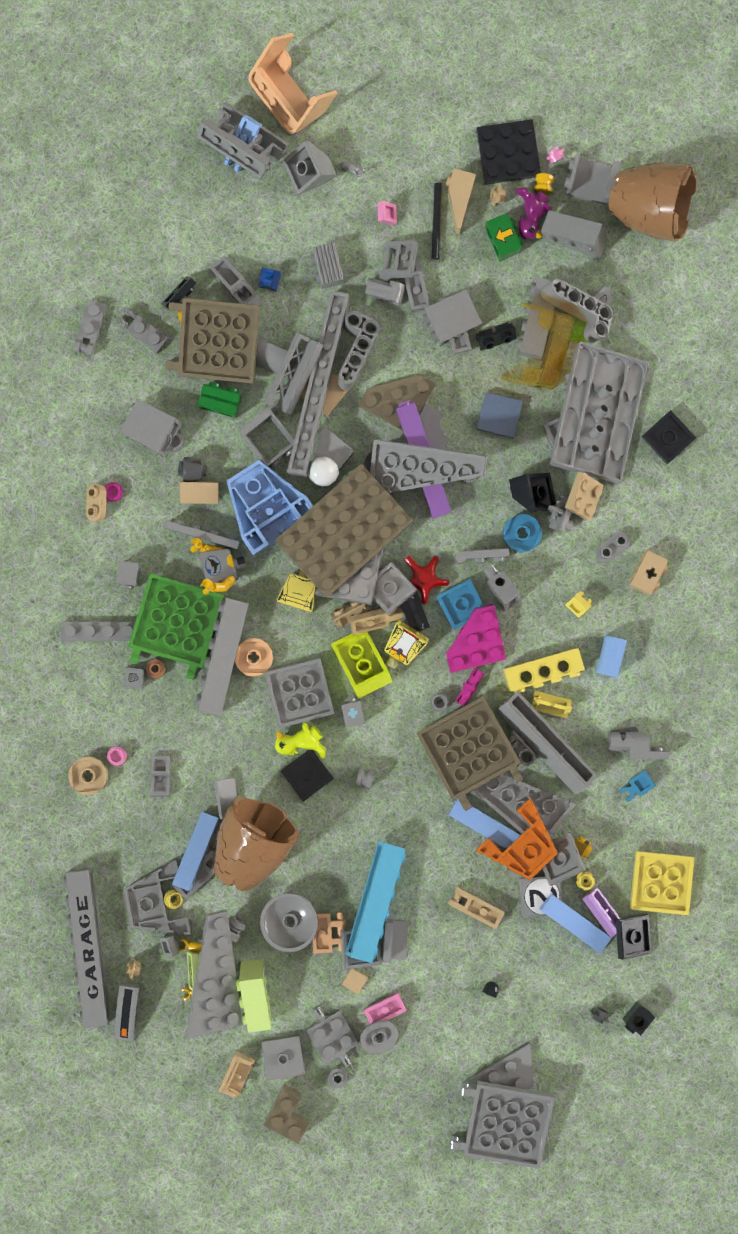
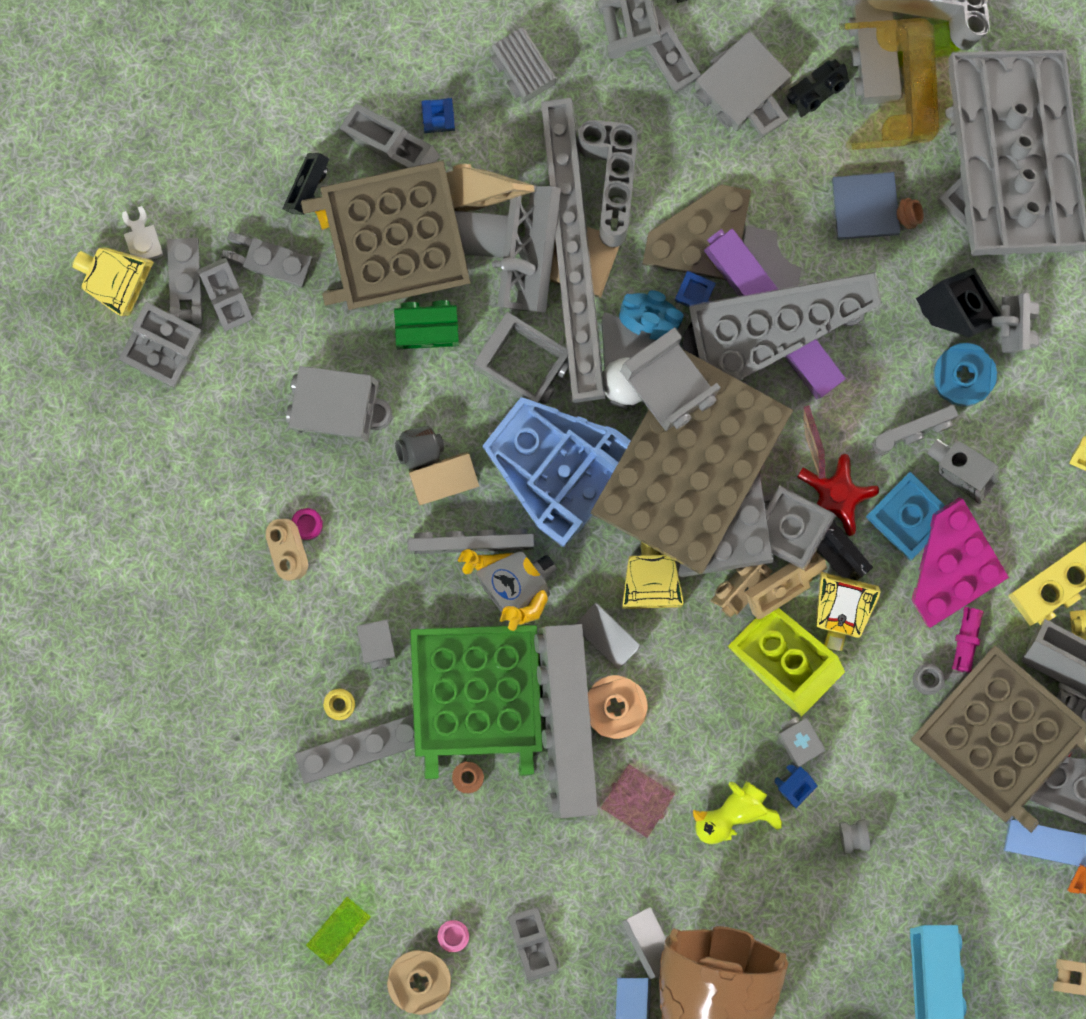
camera: 25 degrees left, 5 degrees down
(48, 311) = (113, 277): none -> light yellow torso
(52, 731) = (338, 931): none -> clear neon green plate
(63, 359) = (160, 345): none -> light grey slope
(74, 295) = (142, 240): none -> white plate
(90, 602) = (339, 694): none -> light yellow plate
(110, 342) = (225, 294): none -> light grey slope
(134, 677) = (439, 803): light grey slope -> none
(248, 714) = (637, 801): none -> clear pink piece
(263, 614) = (608, 636): none -> light grey slope
(277, 329) = (480, 188): none -> tan slope
(282, 381) = (512, 264): none -> light grey piece
(299, 693) = (706, 738): light grey plate -> none
(307, 774) = (762, 863): black tile -> none
(341, 738) = (797, 786): none -> blue tile
(345, 479) = (669, 381): none -> light grey panel
(351, 437) = (649, 313): none -> dark azure plate
(382, 431) = (694, 290): none -> blue tile
(389, 292) = (633, 73): light grey piece -> none
(419, 544) = (814, 442): none -> clear pink piece
(523, 428) = (910, 213): none -> nougat plate
(584, 496) = (1041, 285): tan plate -> none

